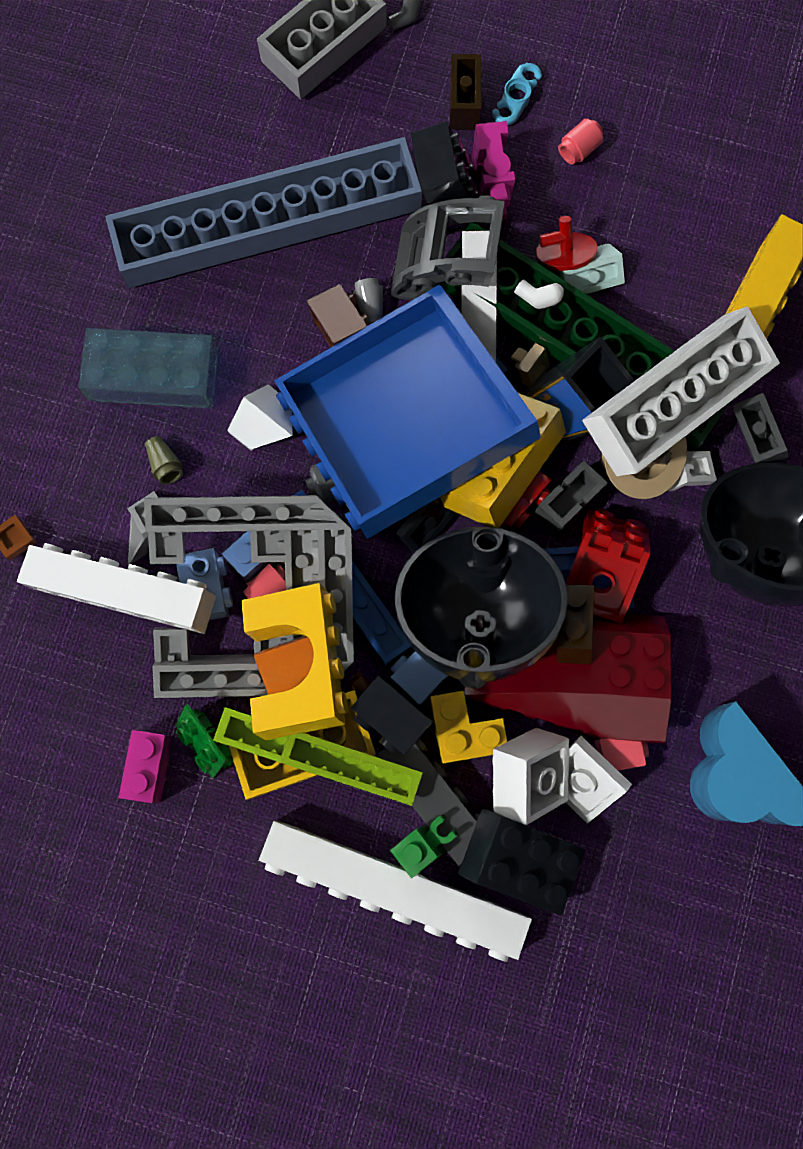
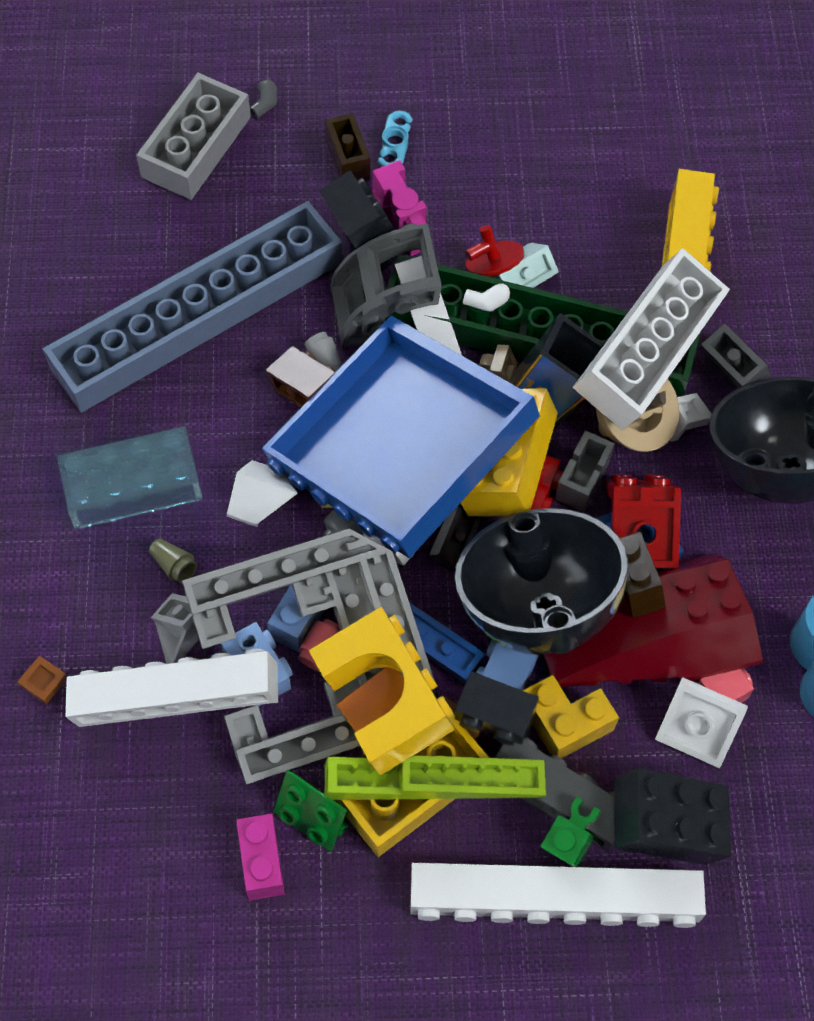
camera: 20 degrees left, 15 degrees down
(530, 775) = (649, 729): white brick -> none
(581, 141) = (470, 163): coral brick -> none

